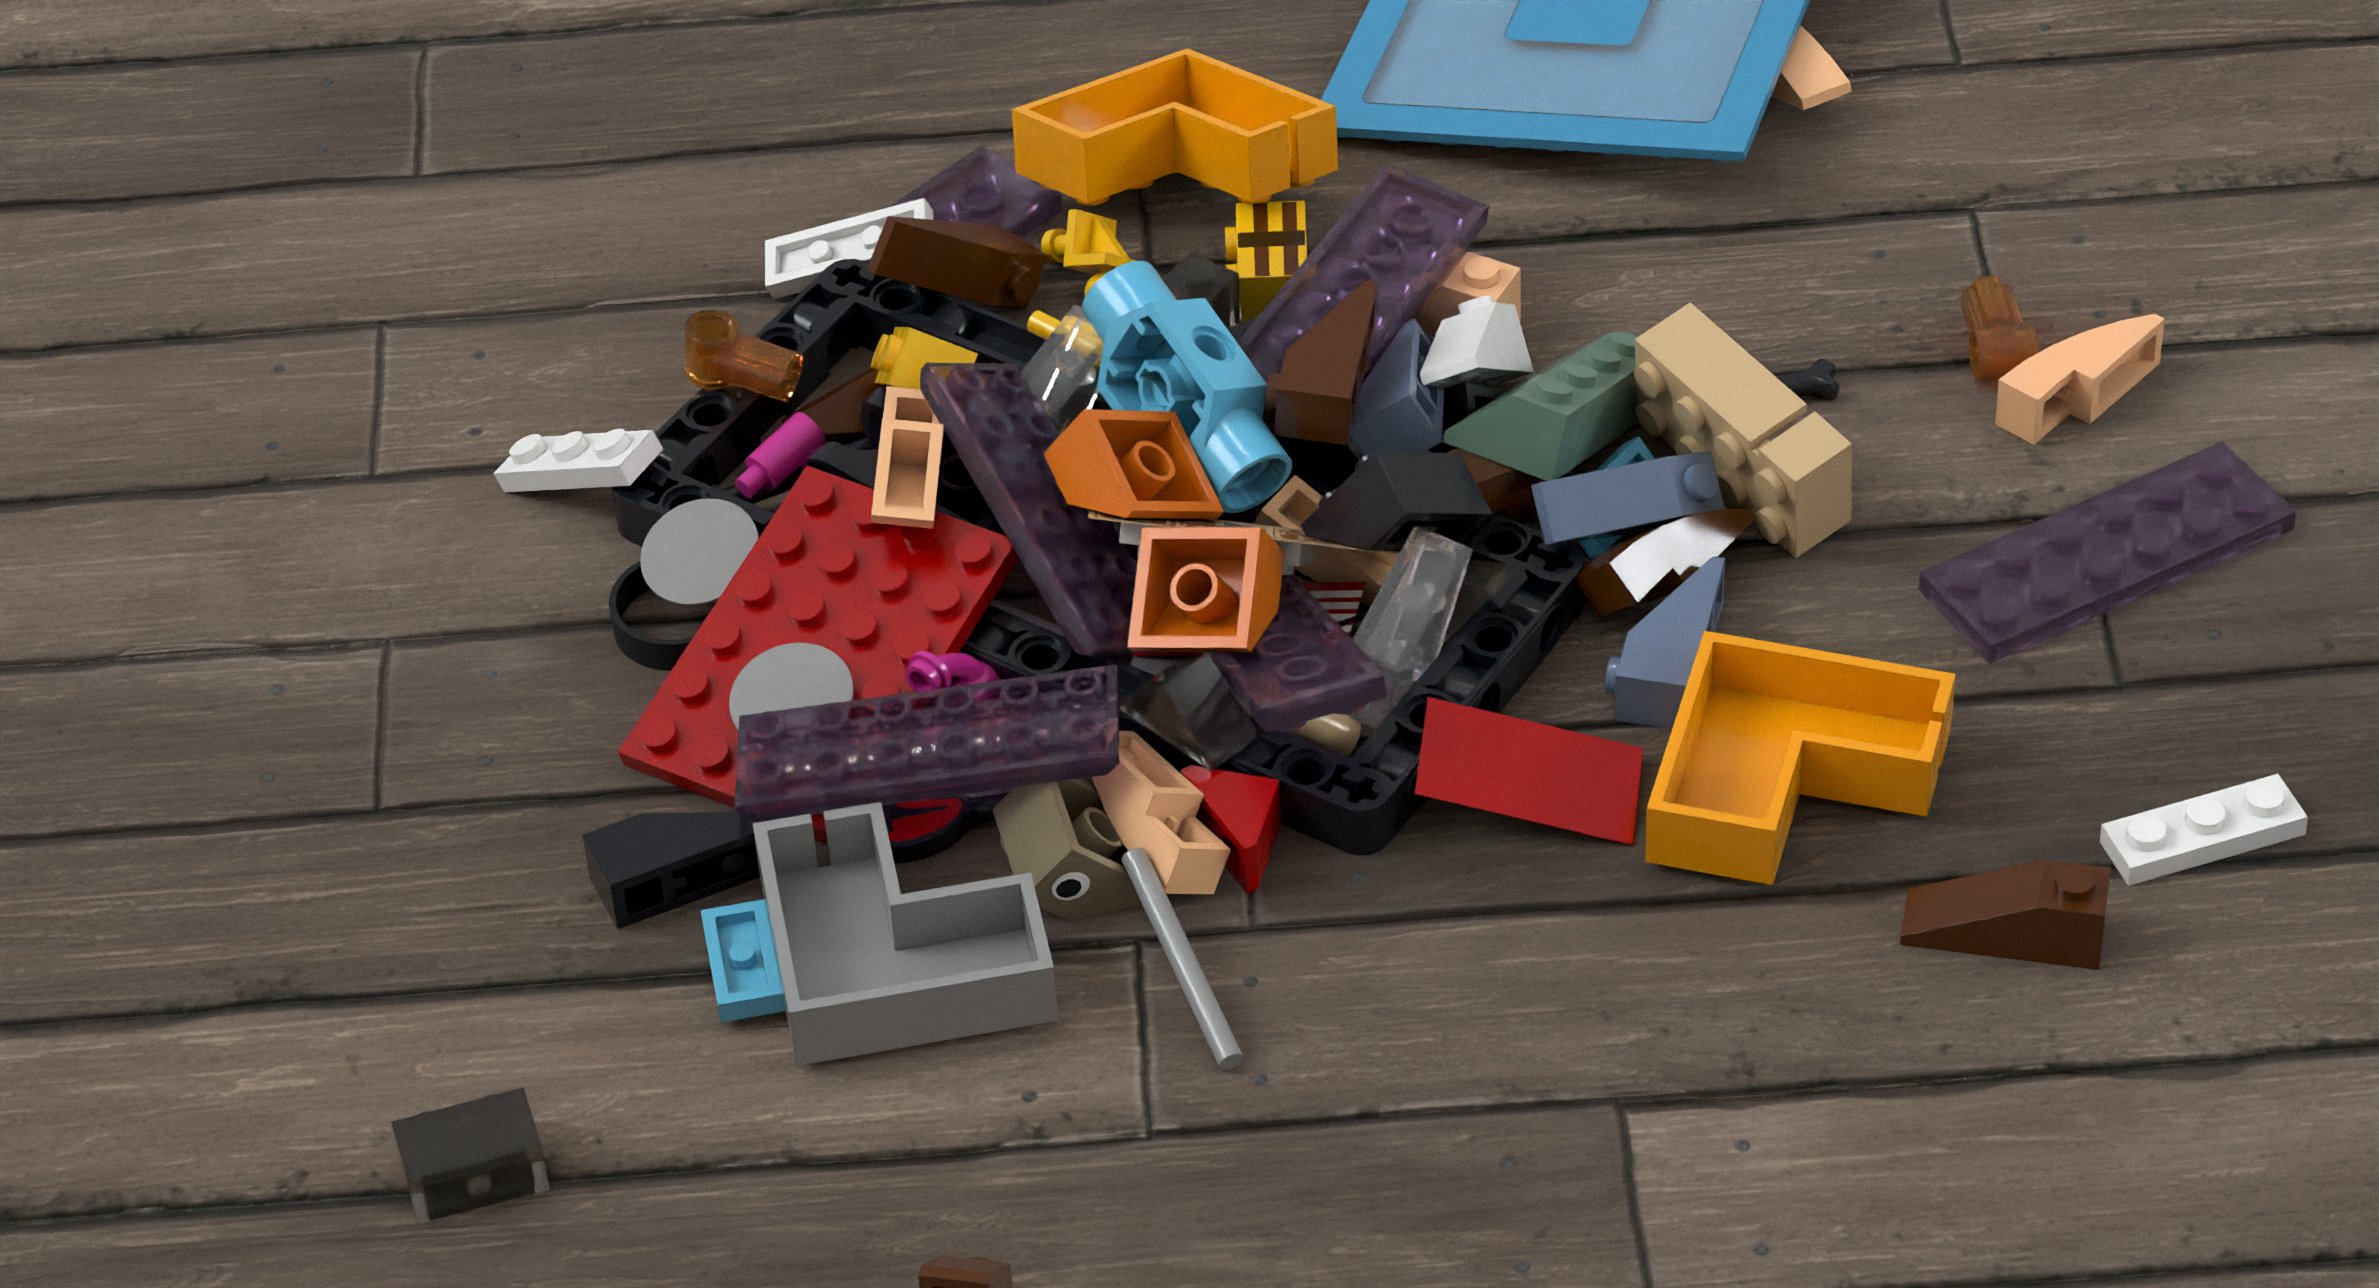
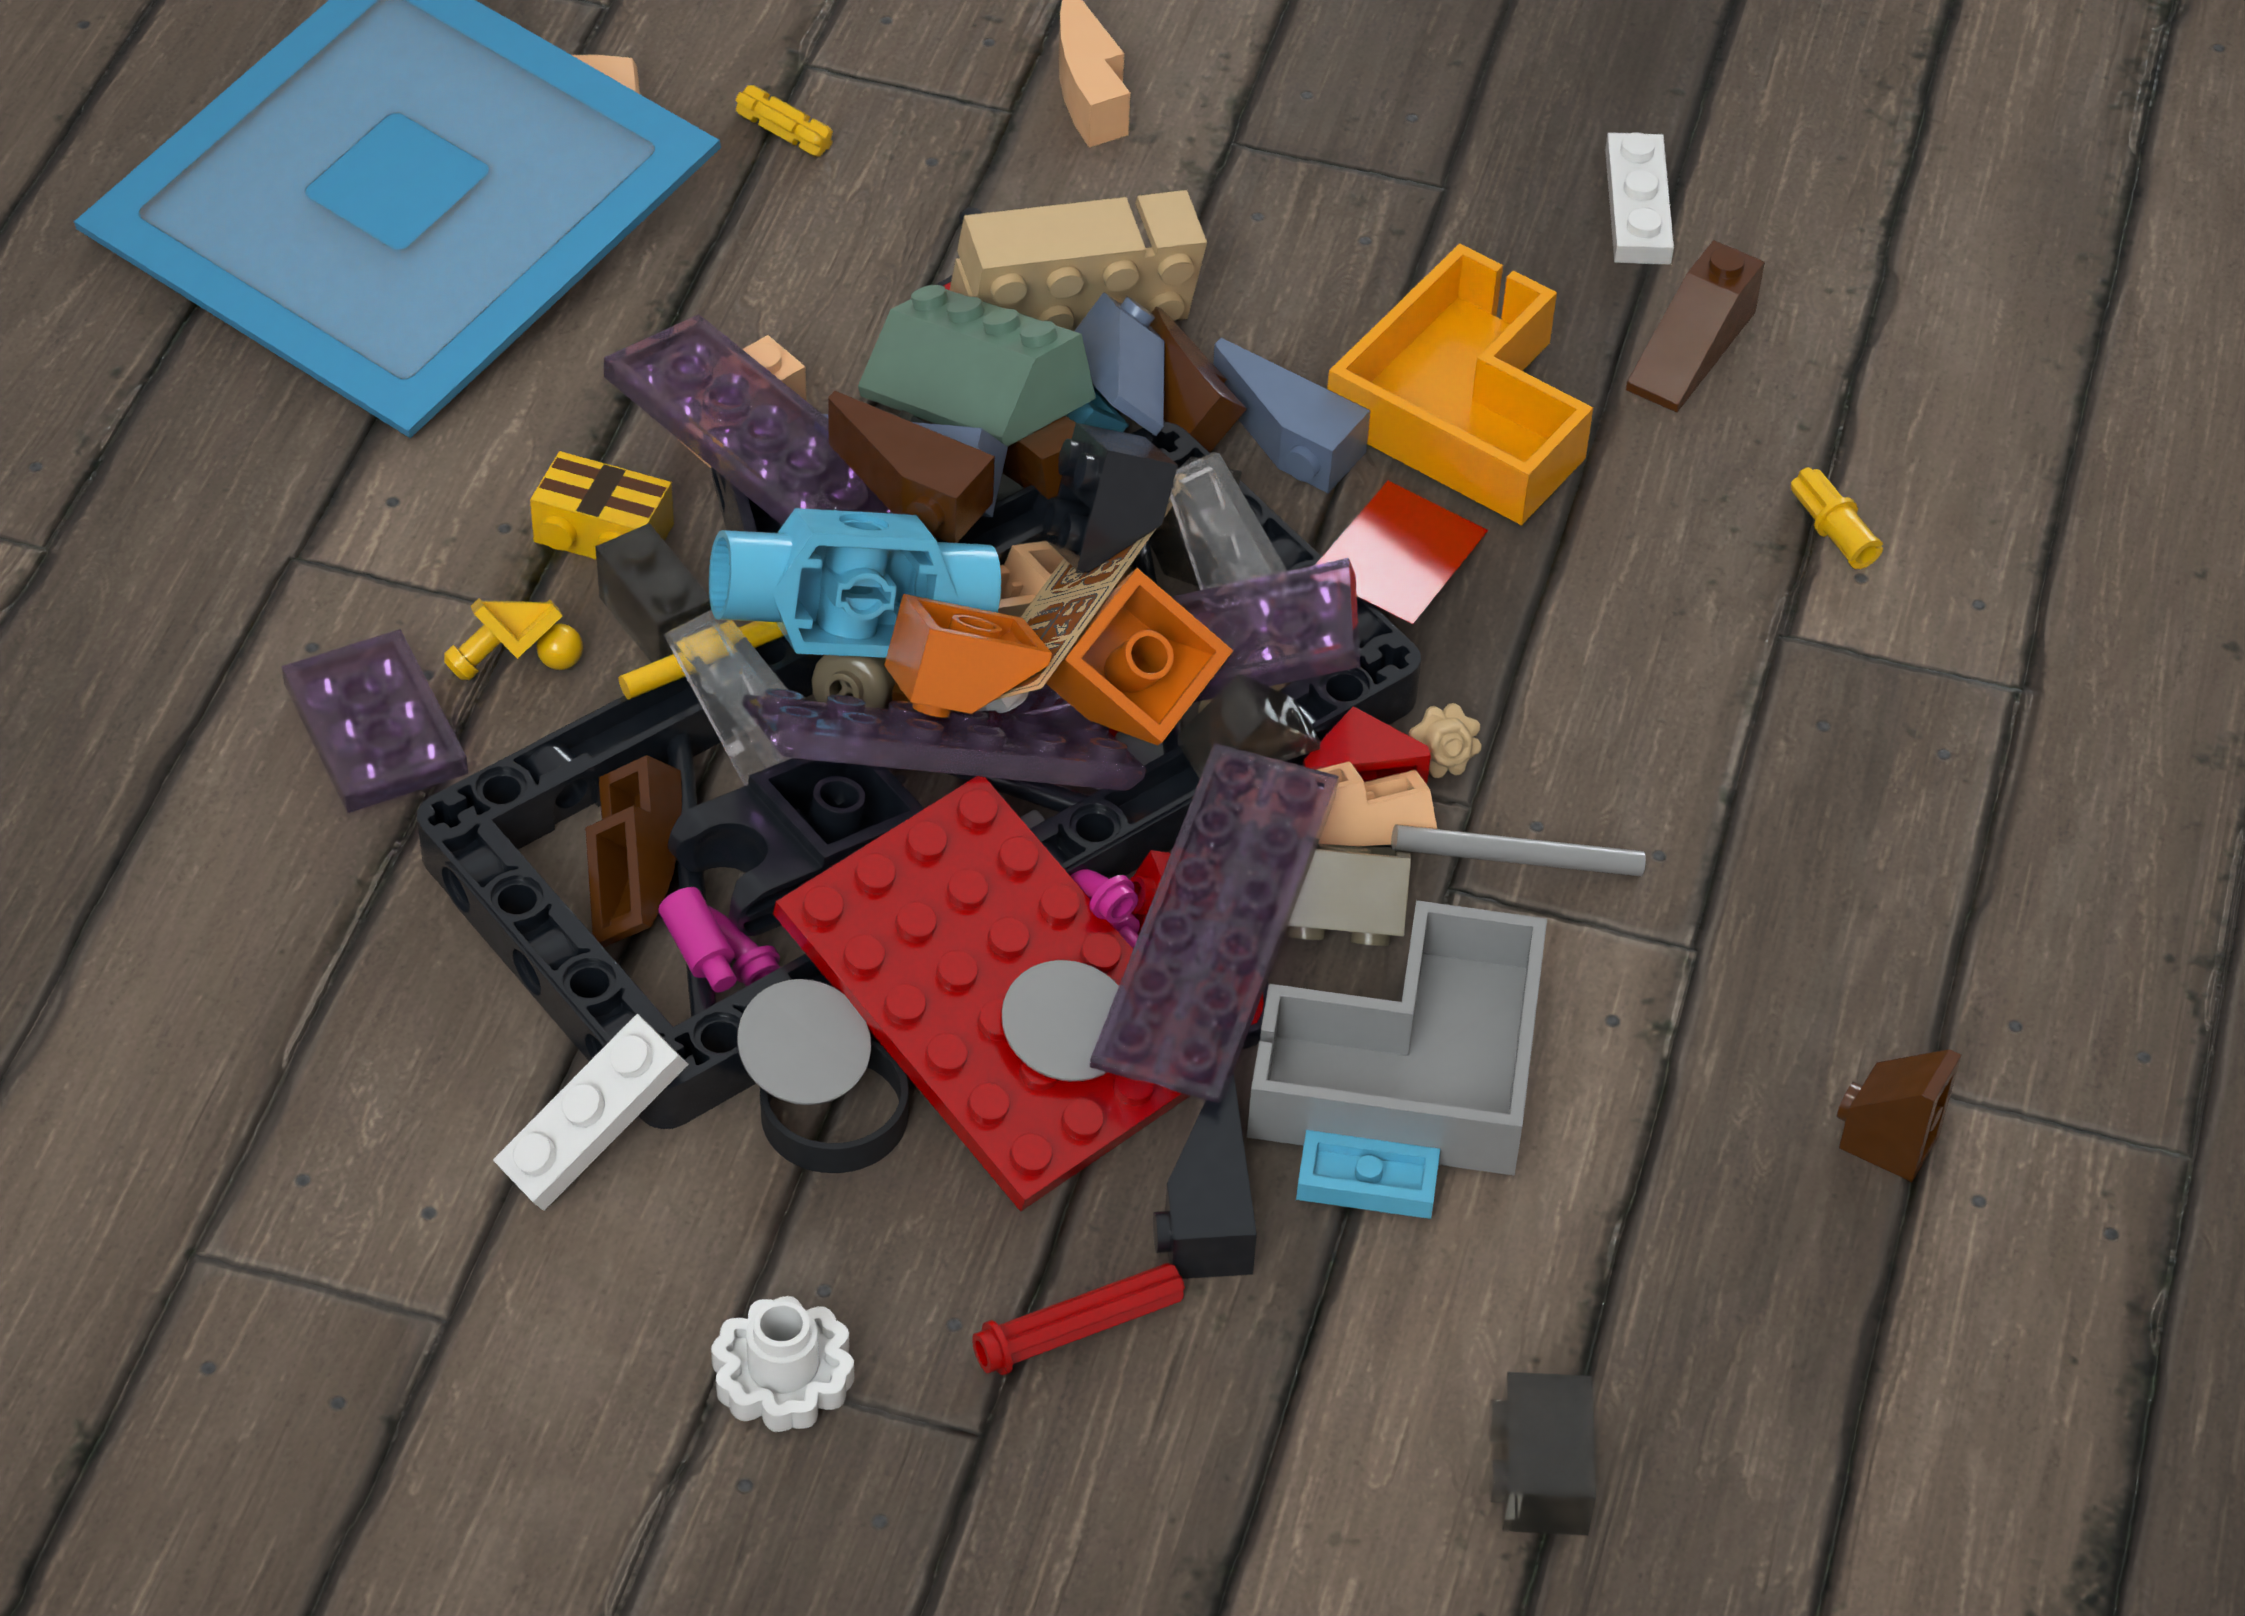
camera: 75 degrees left, 5 degrees up
(385, 658) = (782, 1363): none -> white plant
(456, 783) = (1004, 1344): none -> red axle
(722, 355) = (545, 925): clear orange piece -> none
(801, 256) = (387, 808): white plate -> none
(907, 351) = (695, 767): yellow brick -> none
(907, 461) = (846, 810): light nougat slope -> none
(959, 260) = (490, 713): reddish brown slope -> none
(1176, 118) = (395, 484): light orange piece -> none
(1301, 872) = (1449, 739): none -> tan plant
(1477, 346) = (895, 386): white slope -> none
(1799, 1094) = (1836, 518): none -> yellow axle
(1869, 214) = (784, 120): none -> yellow axle
(1996, 329) = (1014, 100): clear orange piece -> none
(2106, 551) = (1293, 138): clear purple plate -> none

